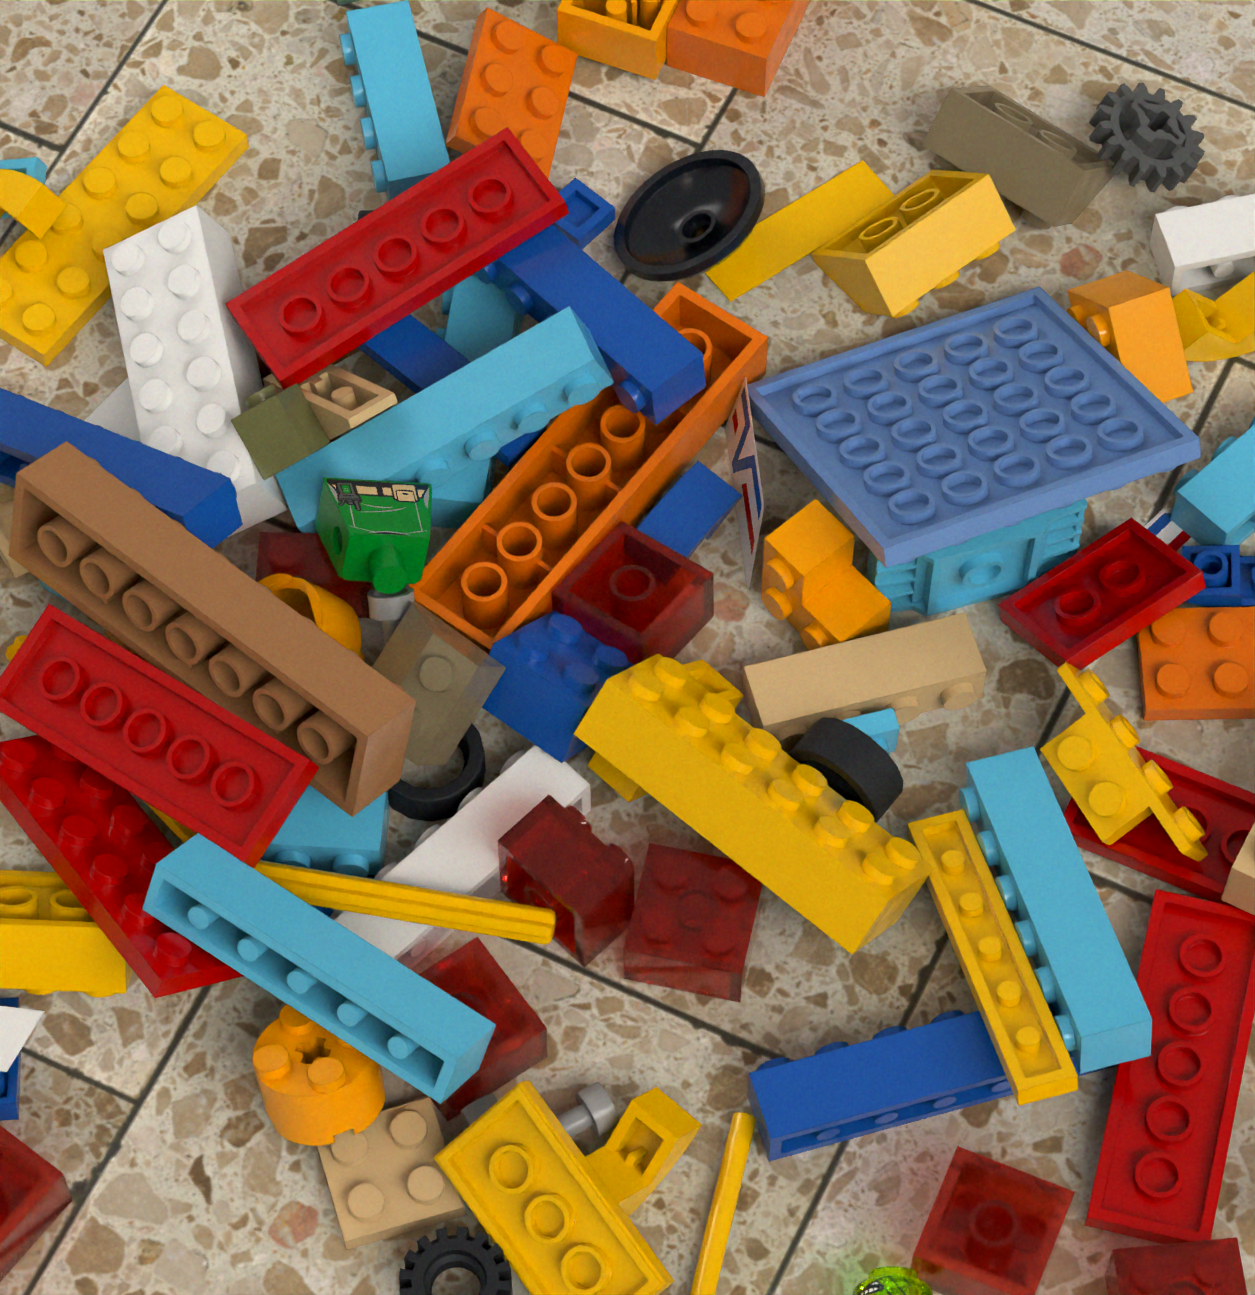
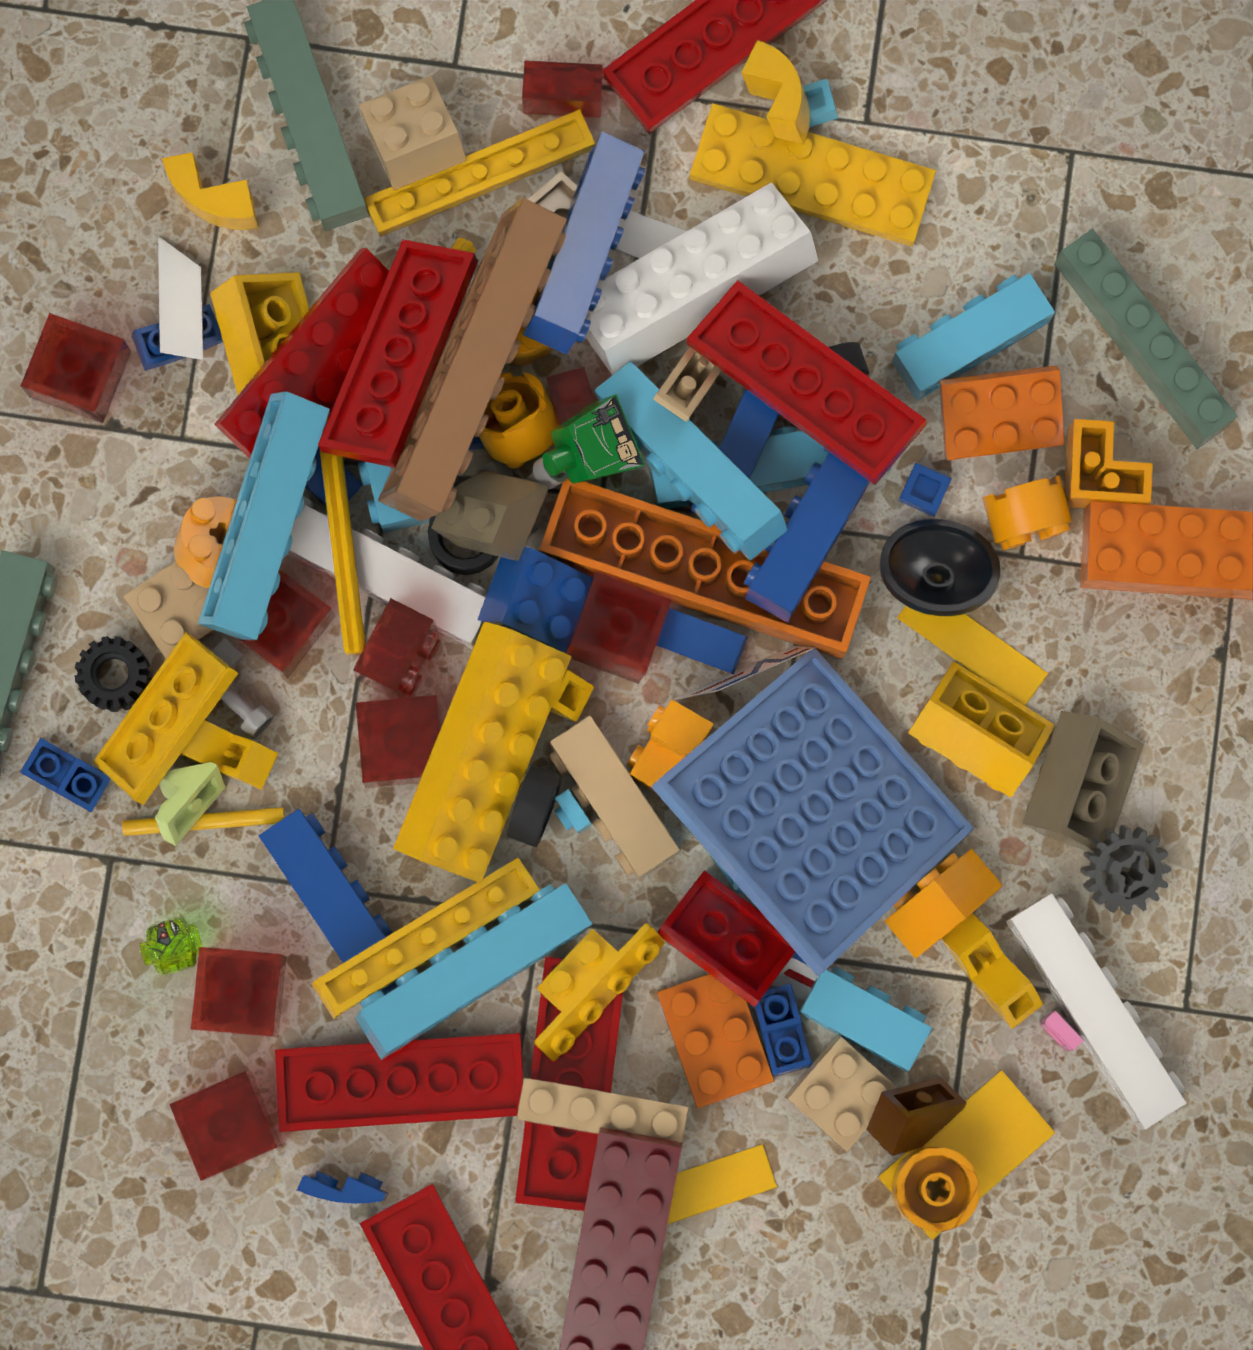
camera: 70 degrees right, 20 degrees up
(279, 429) = (650, 352): olive brick -> none
(655, 102) = (1026, 511): none -> light orange brick
(679, 1231) = (189, 795): none -> yellowish green slope

